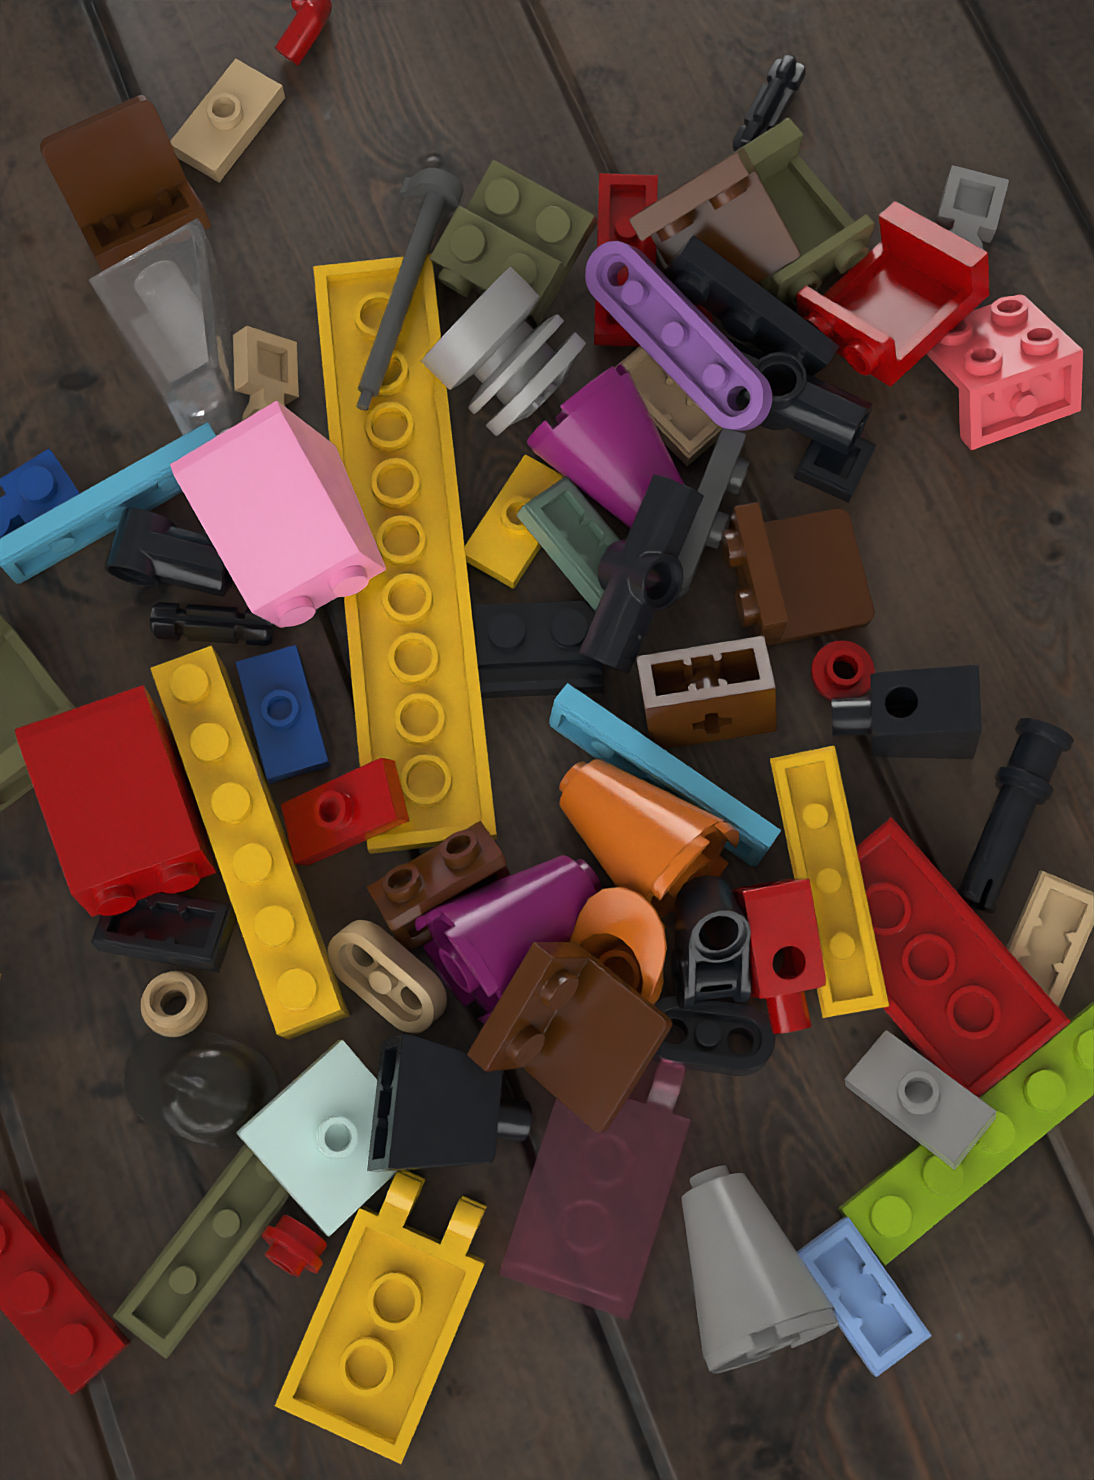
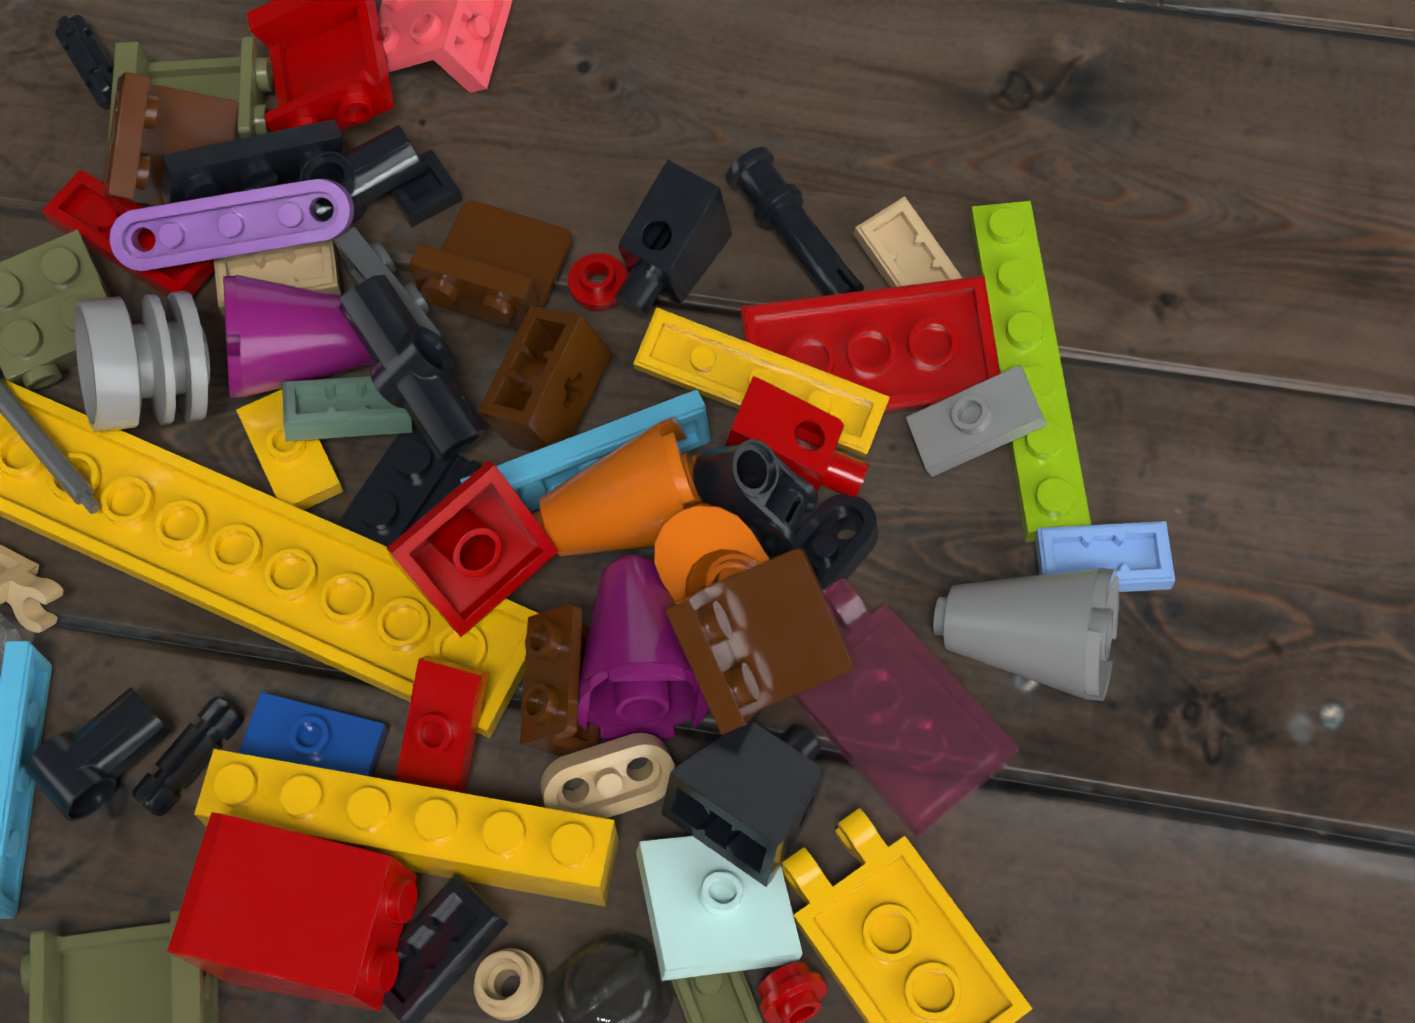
camera: 55 degrees left, 10 degrees down
(281, 515) = (142, 622): bright pink slope -> none
(503, 739) = (472, 549): none -> red slope

